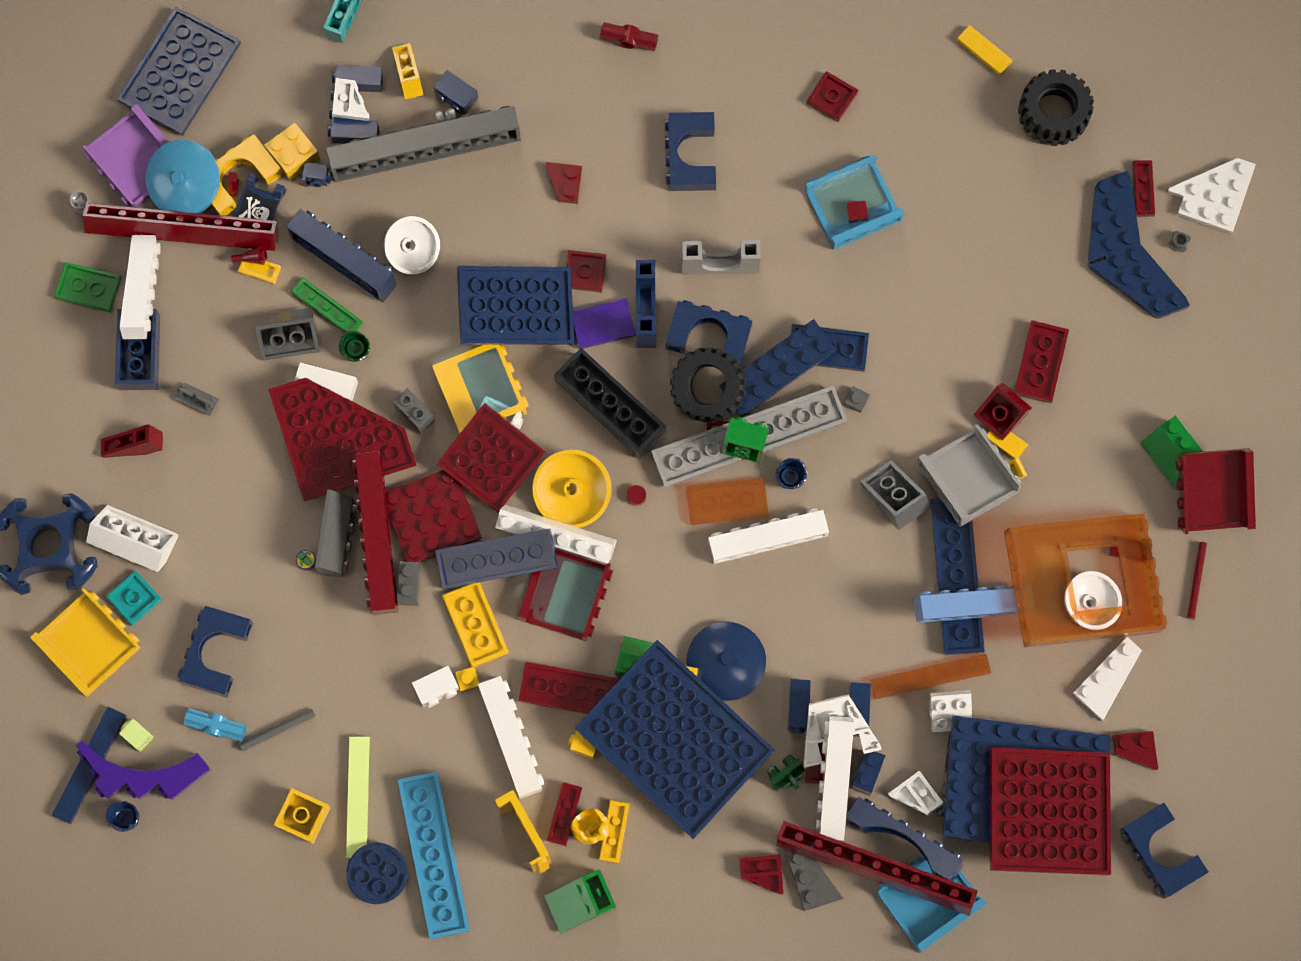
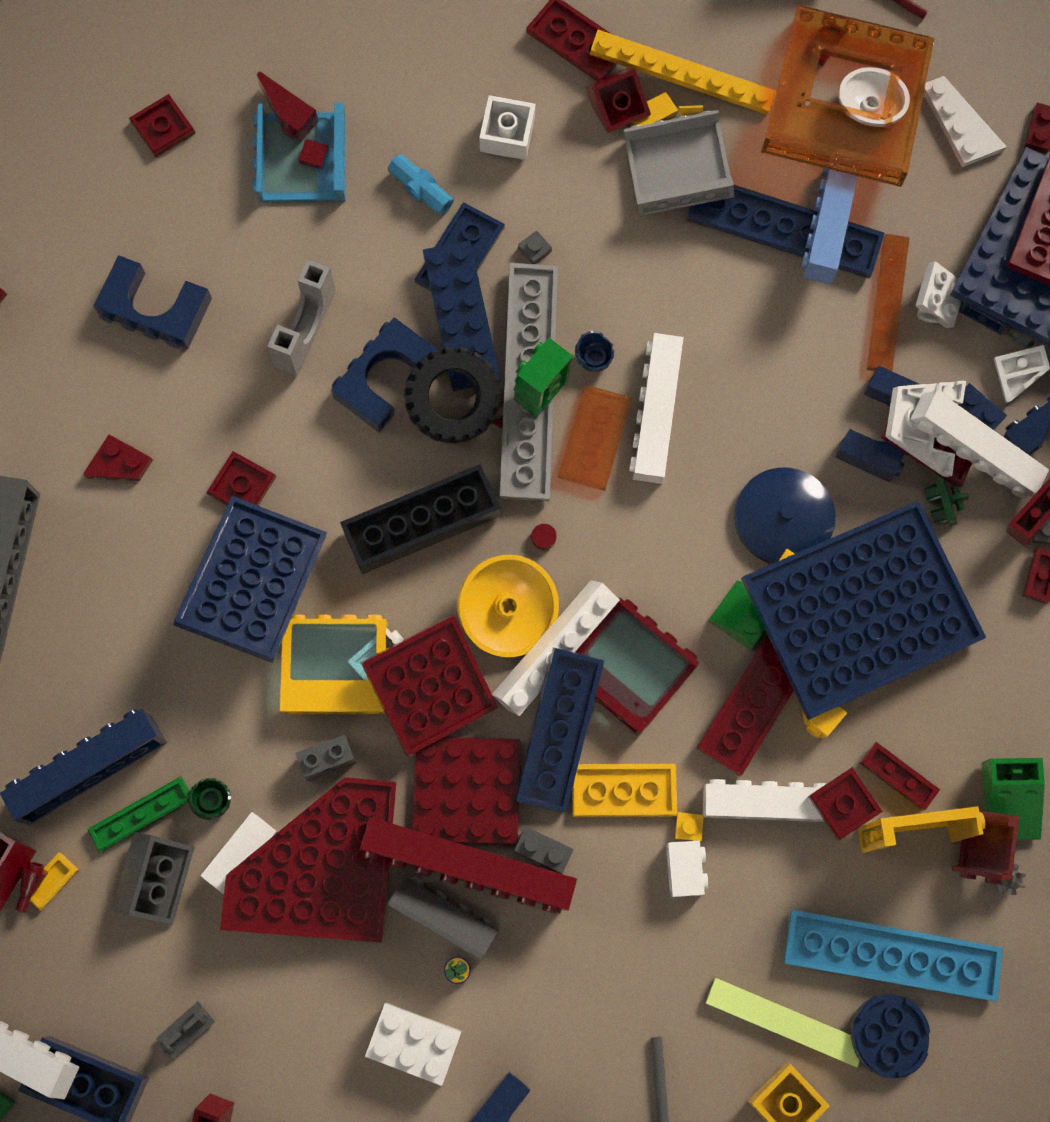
camera: 70 degrees left, 0 degrees up
(245, 550) = (413, 1043): none -> white brick
(423, 245) = (114, 661): white dish -> none
(520, 917) = (1012, 885): none -> dark grey gear
(525, 777) = (845, 804): none -> dark red tile
(537, 891) = (992, 852): none -> dark red panel
(590, 826) = (930, 750): yellow hair -> none
(603, 324) = (317, 489): dark purple tile -> none
(617, 820) = (939, 726): yellow tile -> none
(645, 304) = (350, 439): dark blue arch -> none
(867, 296) = (420, 184): none -> dark azure piece
(881, 178) = (291, 112): none -> dark red slope
(895, 494) = (665, 250): dark grey slope -> none
(940, 339) = (507, 127): none -> white brick
(1048, 447) = (682, 72): none -> yellow plate

